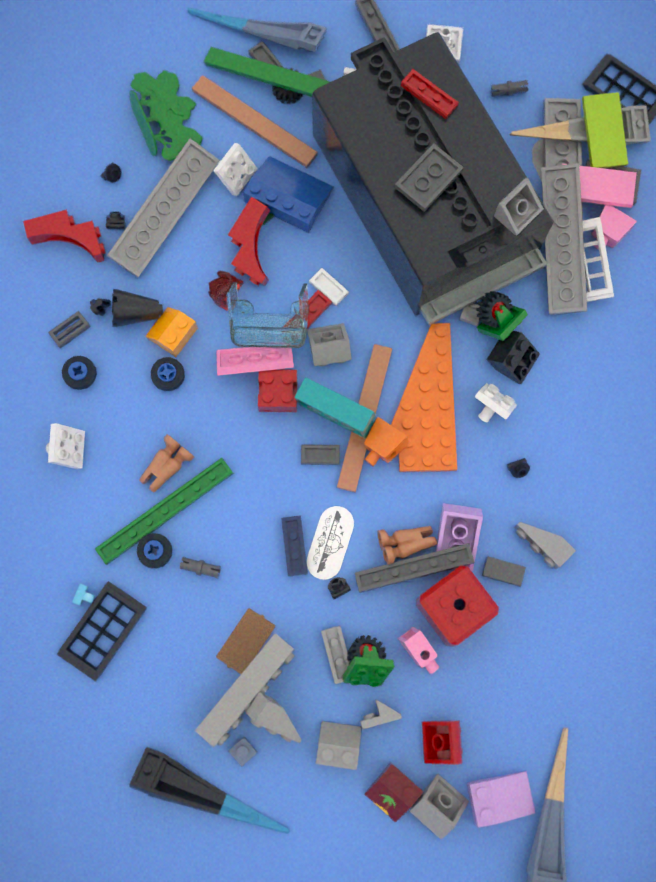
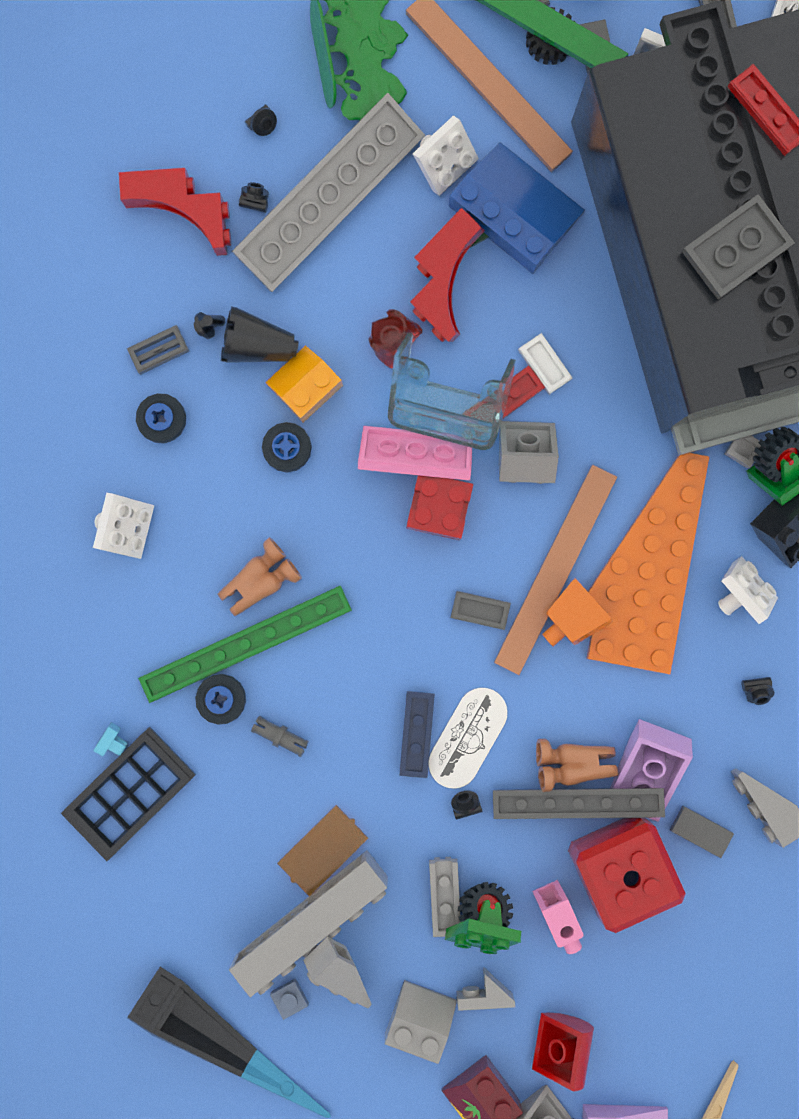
camera: 15 degrees right, 10 degrees up
(335, 407) = (517, 552): teal brick -> none

